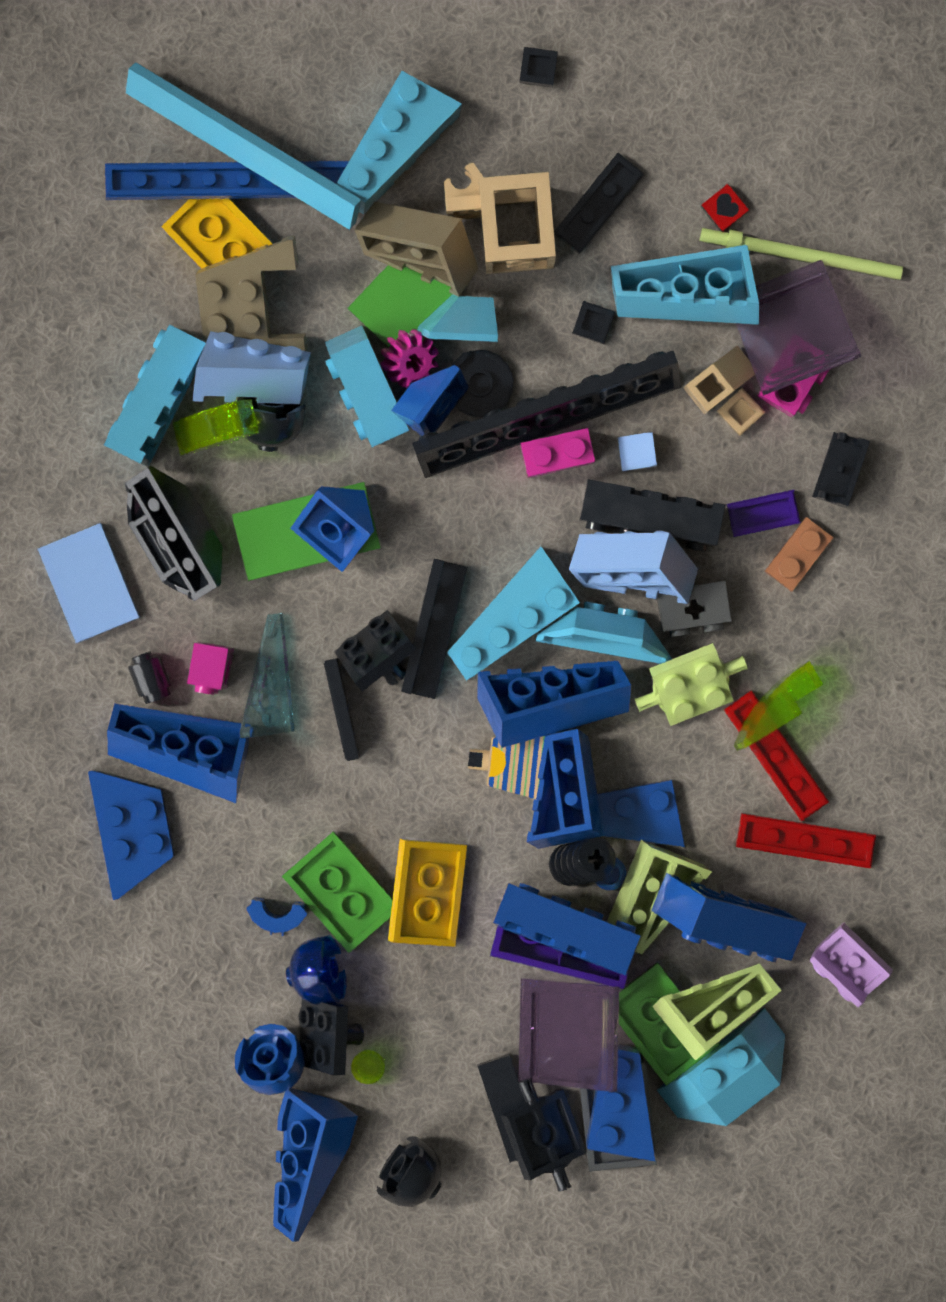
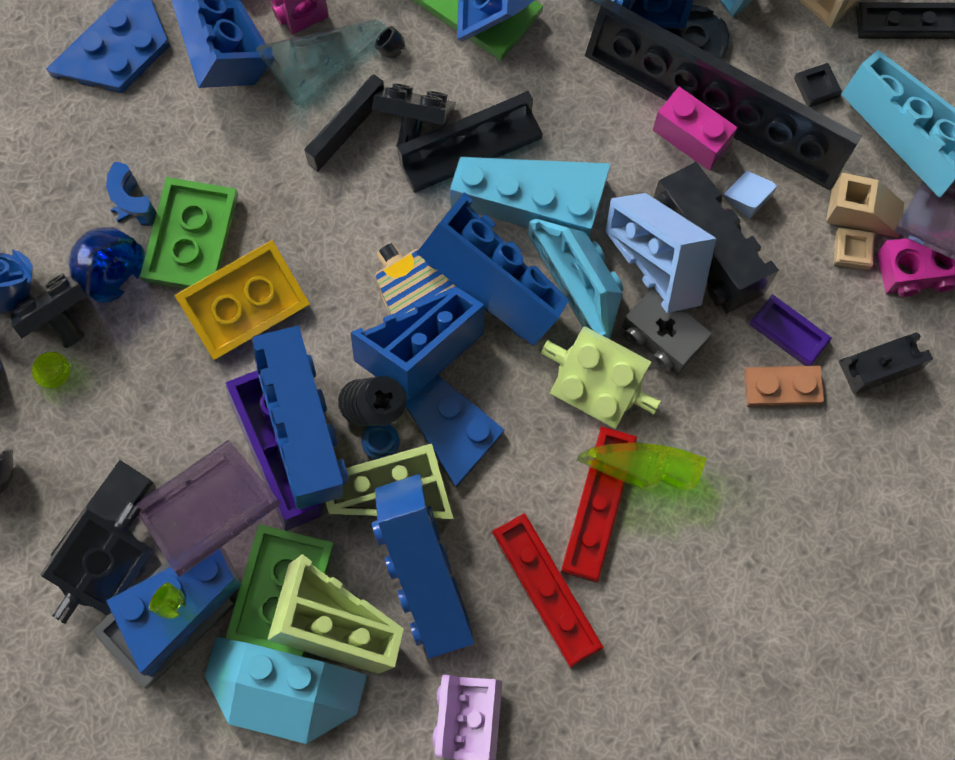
camera: 50 degrees right, 15 degrees down
(292, 625) = (390, 42): none -> black hinge
(625, 1110) = (167, 601): none -> clear neon green hinge

